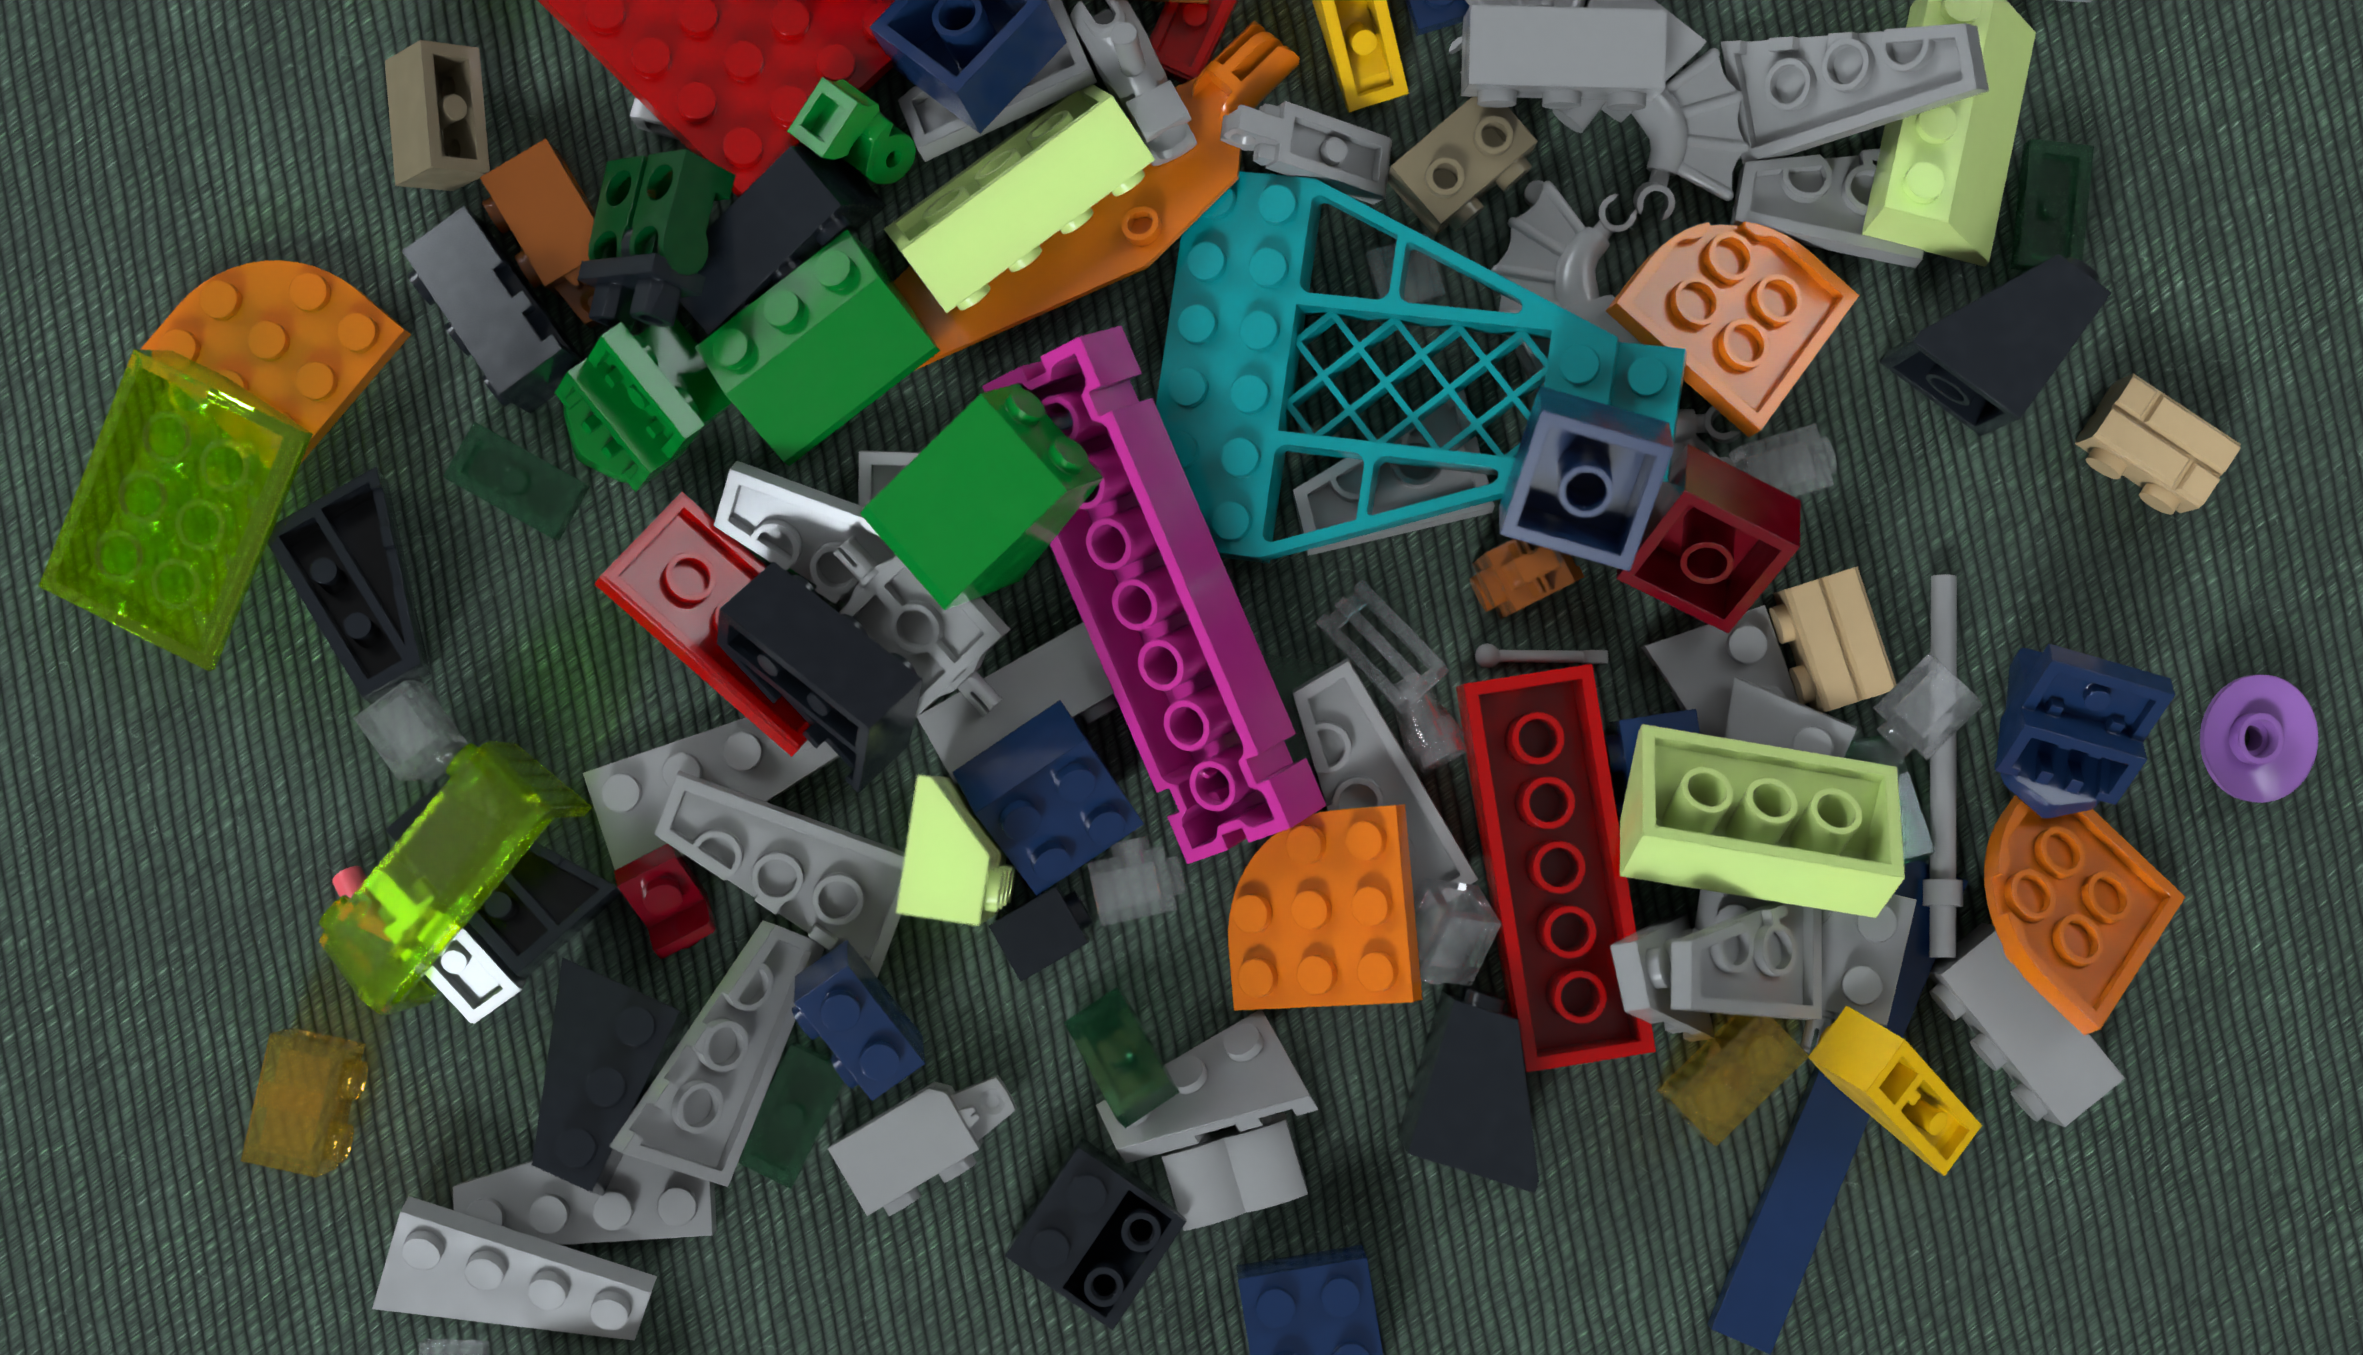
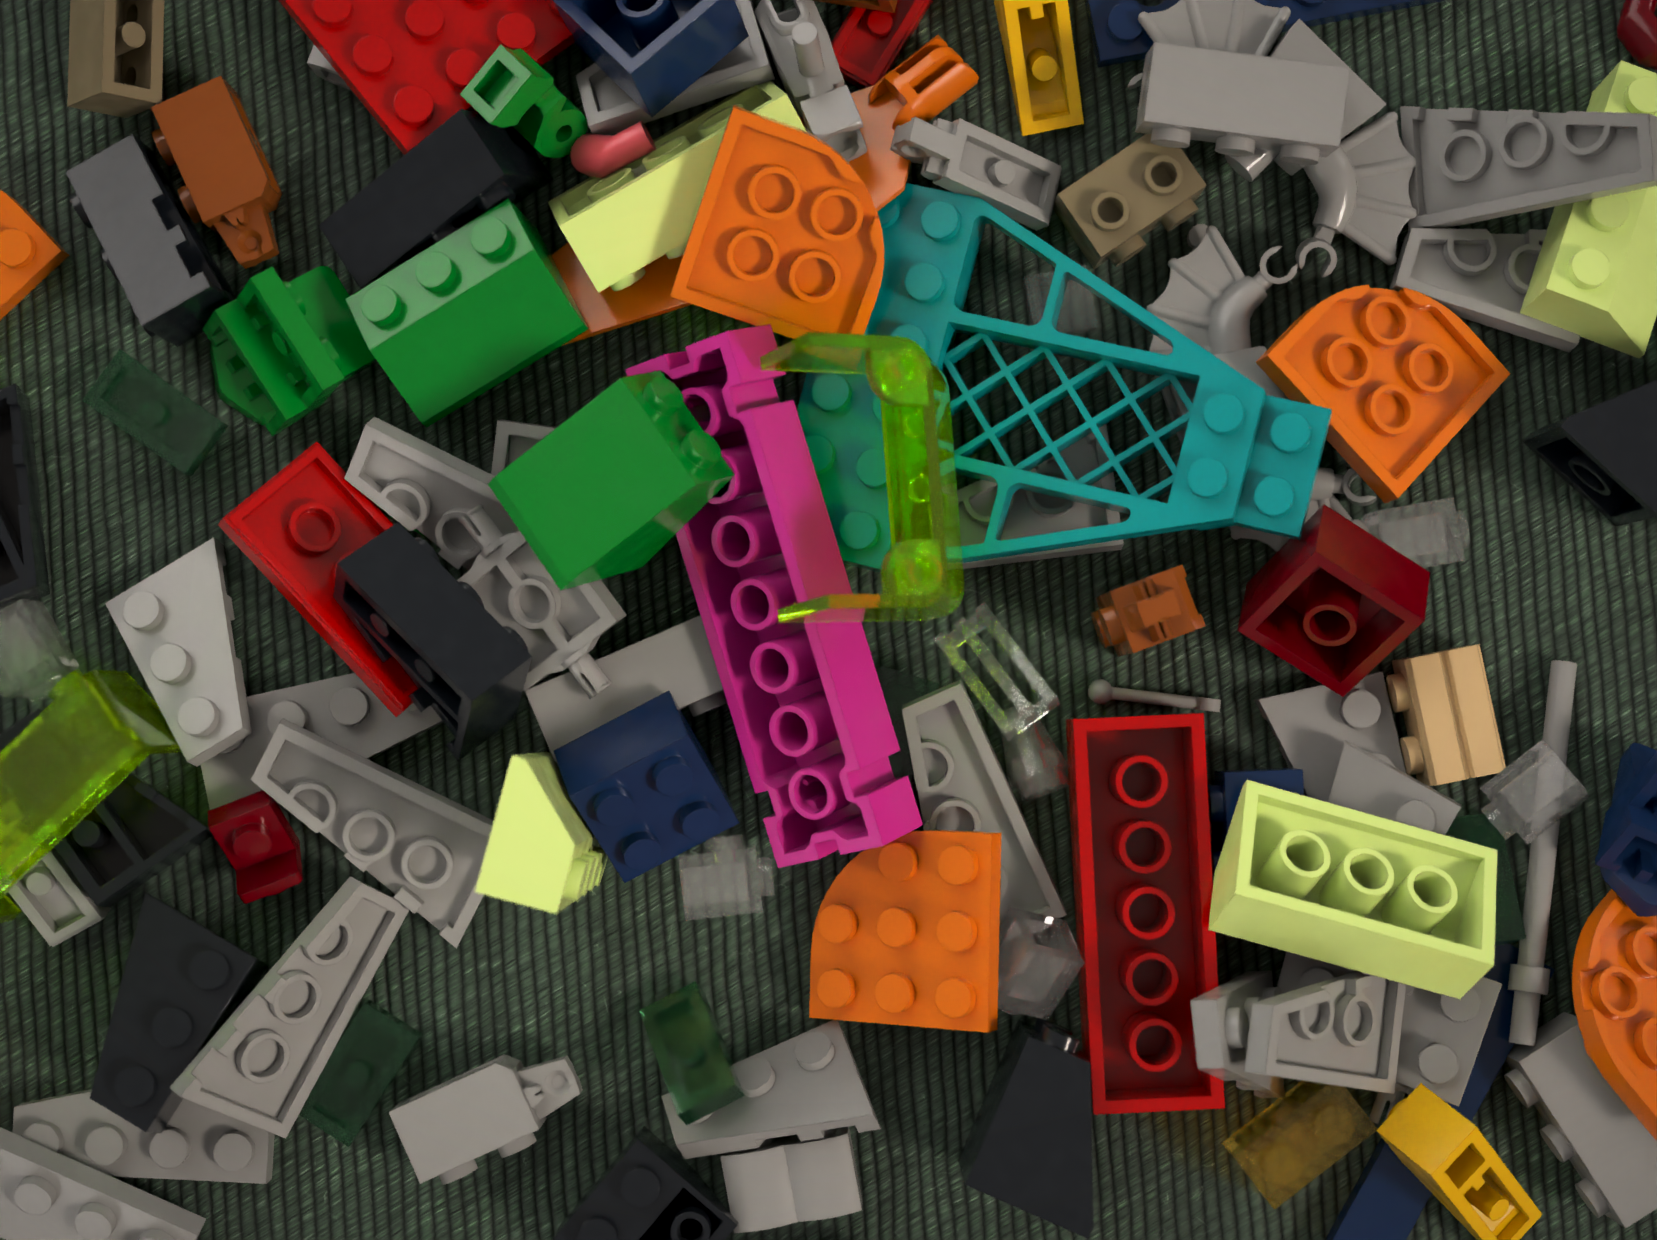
camera: 10 degrees right, 0 degrees up
(573, 713) = (186, 650): none -> light grey wing
(651, 236) = (313, 184): dark green hips -> none
(858, 1021) = (432, 988): dark blue brick -> none
(936, 175) = (603, 154): none -> coral arm
(1042, 931) = (627, 918): black brick -> none
(1126, 238) = (783, 234): none -> orange plate
(1300, 537) = (925, 563): none -> clear neon green windscreen
(1585, 478) = (1217, 529): dark blue brick -> none

